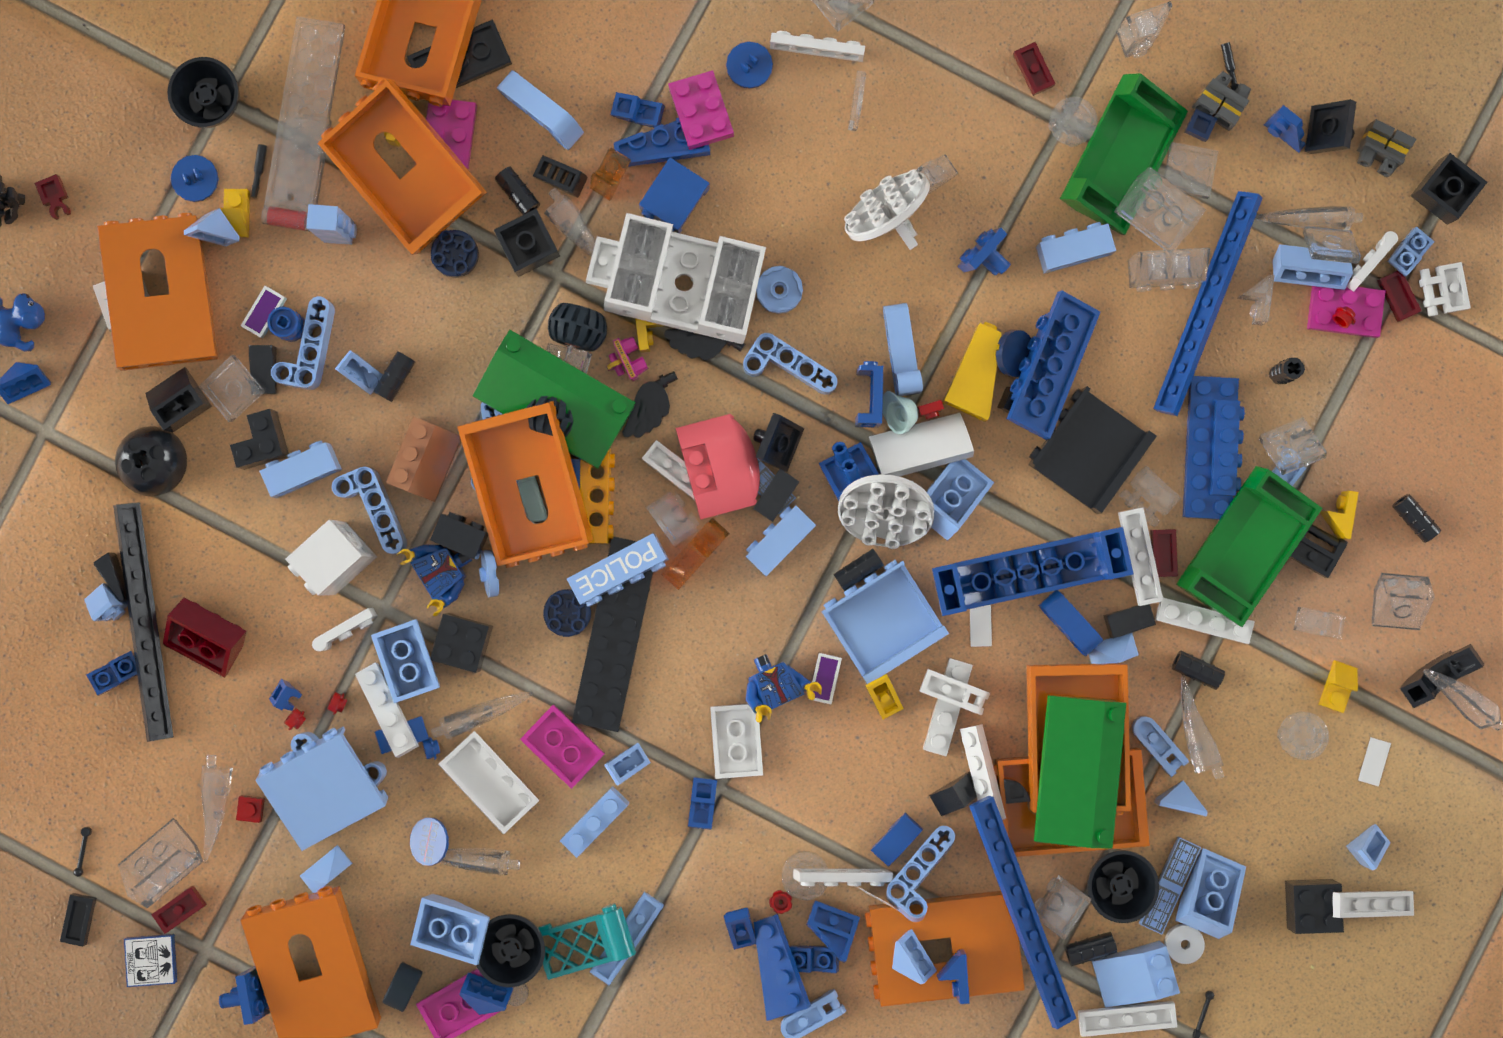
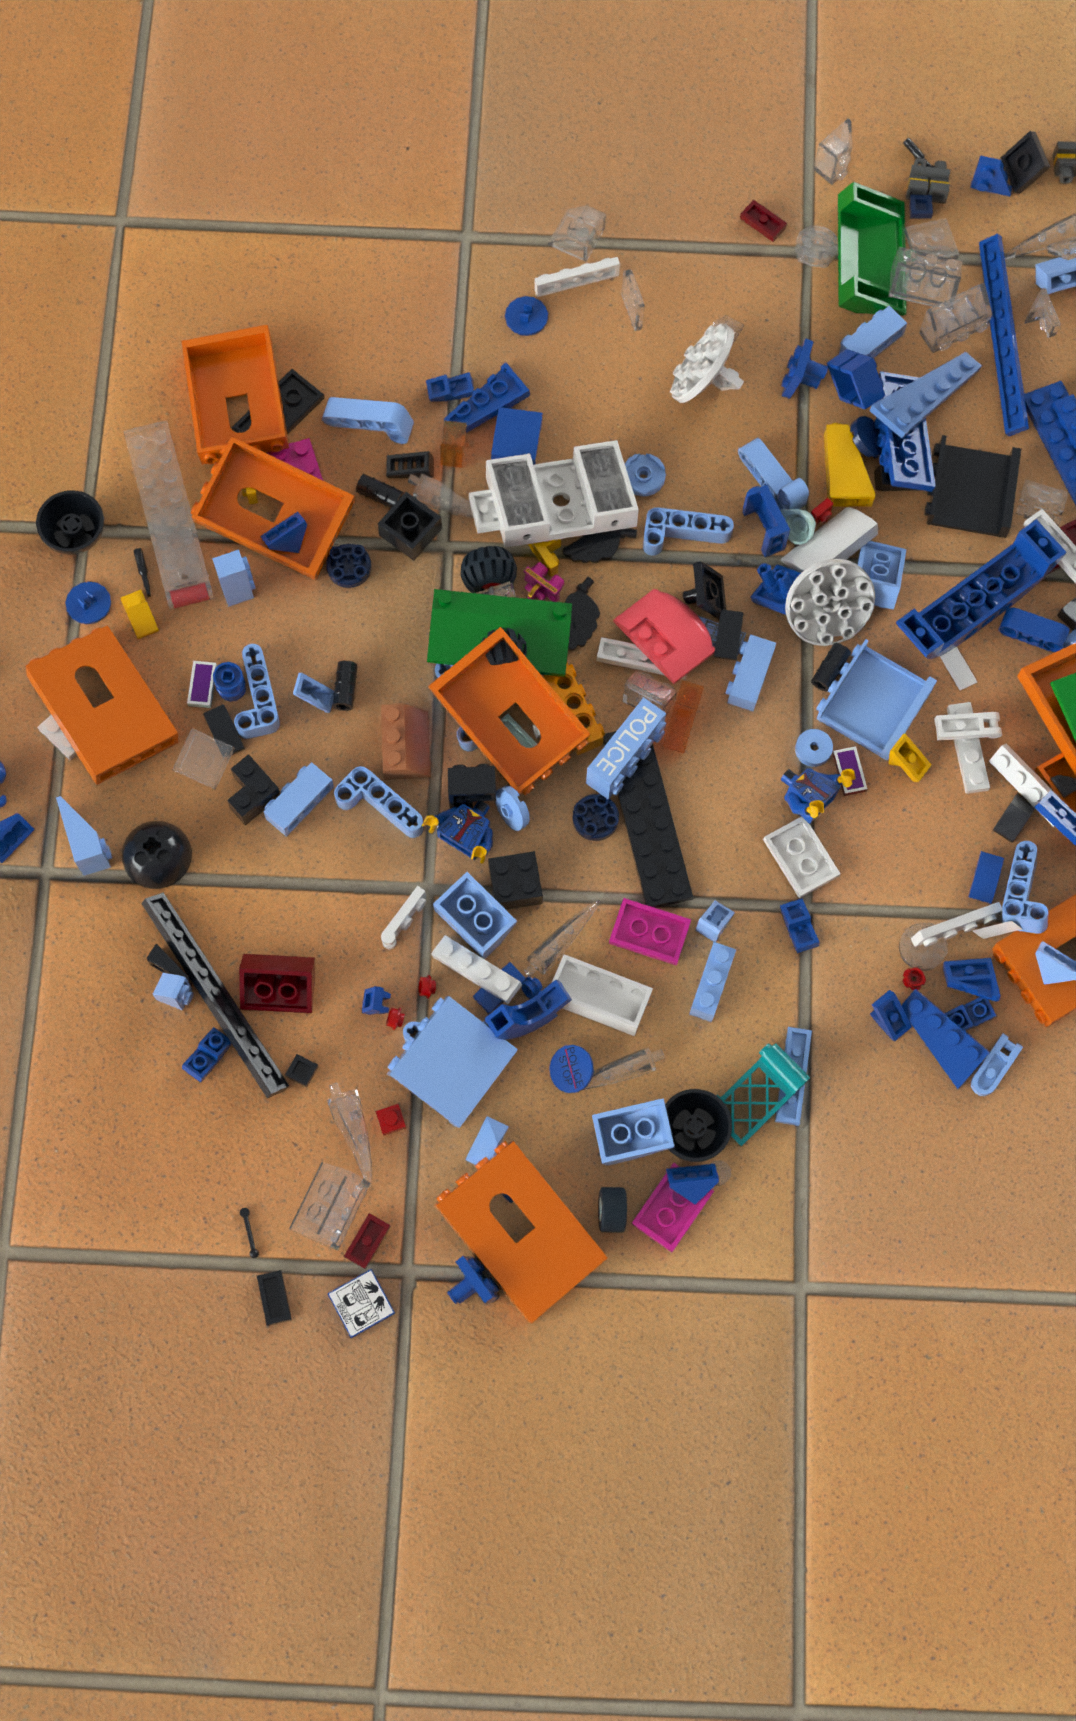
camera: 25 degrees left, 15 degrees down
(83, 419) = (88, 850): none -> light blue slope
(177, 401) = (160, 788): black slope -> none
(190, 728) = (301, 1070): none -> black plate
(213, 228) = (129, 630): light blue slope -> none
(330, 558) = (365, 852): white container -> none
(404, 198) = (286, 535): none -> blue slope
(408, 777) = (518, 1020): none -> blue arch
(701, 110) = (505, 363): dark pink plate -> none
(792, 637) = (806, 754): none -> light blue piece
(1032, 290) = (856, 379): none -> blue piece
(1078, 339) = (917, 400): none -> medium blue wing

